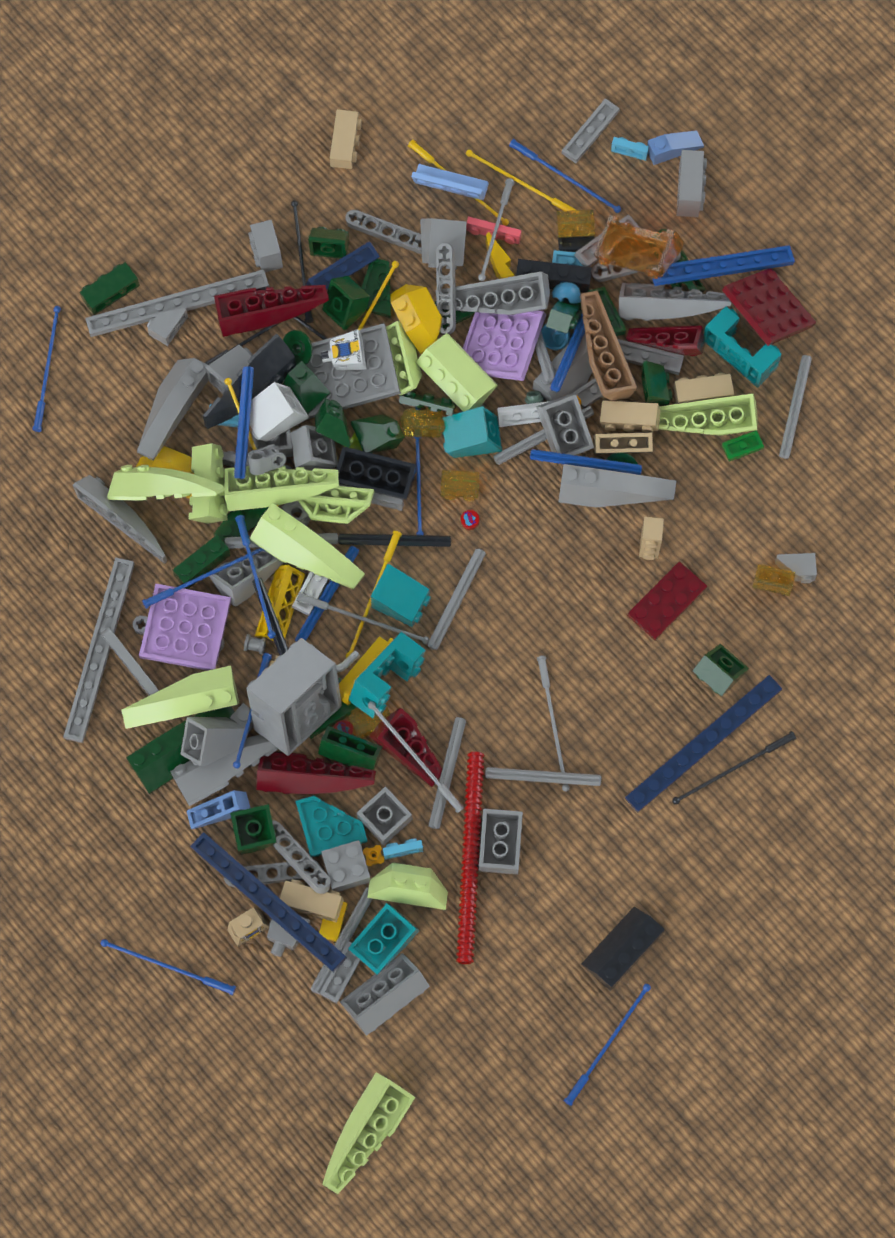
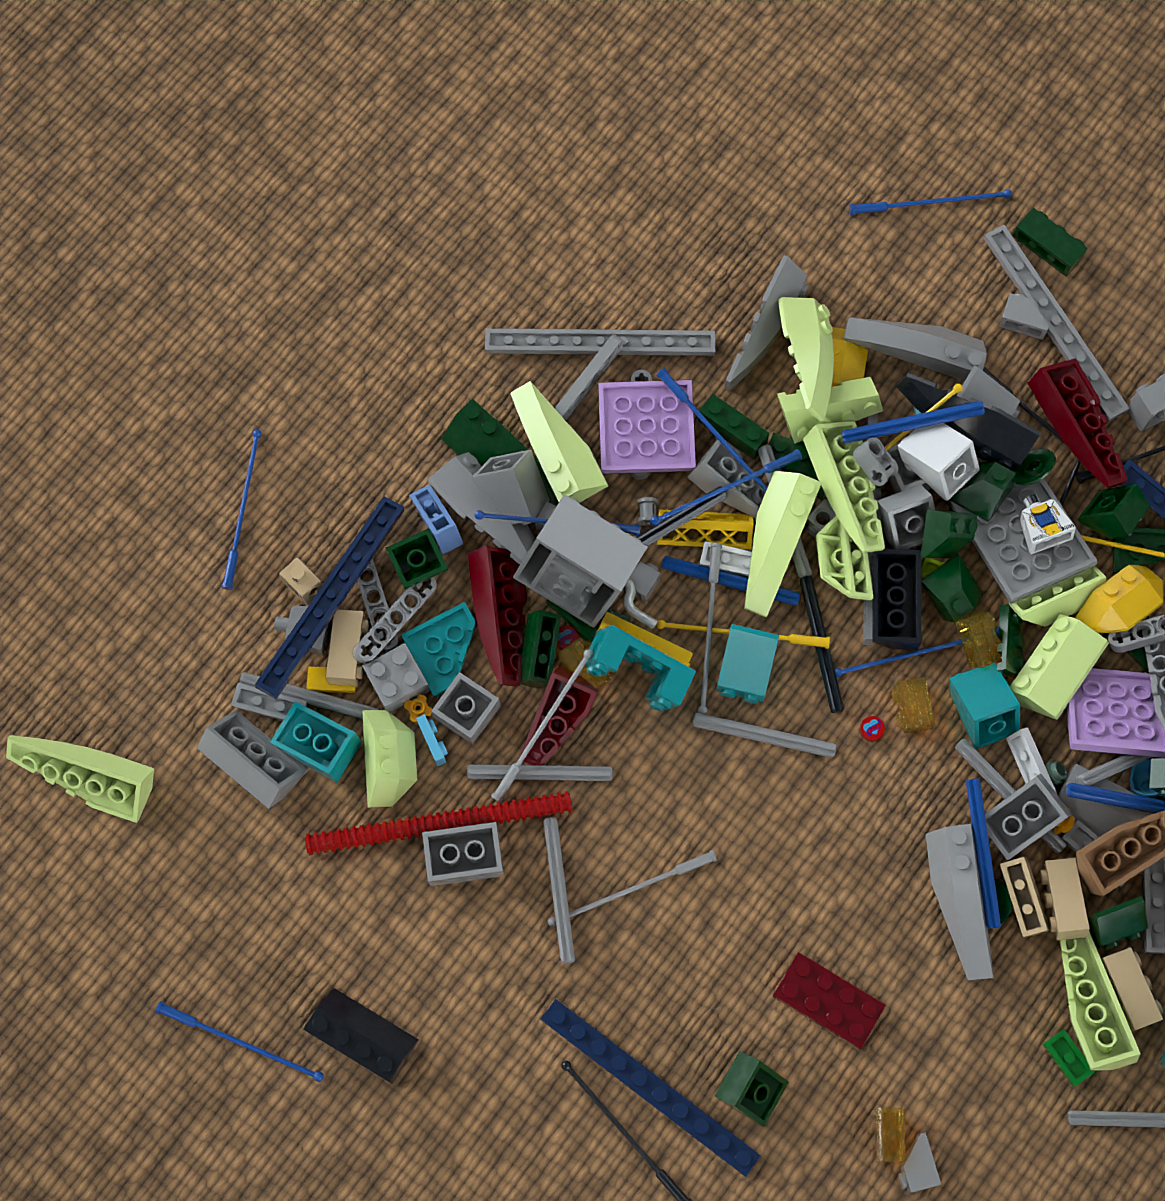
camera: 80 degrees right, 0 degrees up
(651, 538) = (901, 958): tan brick -> none

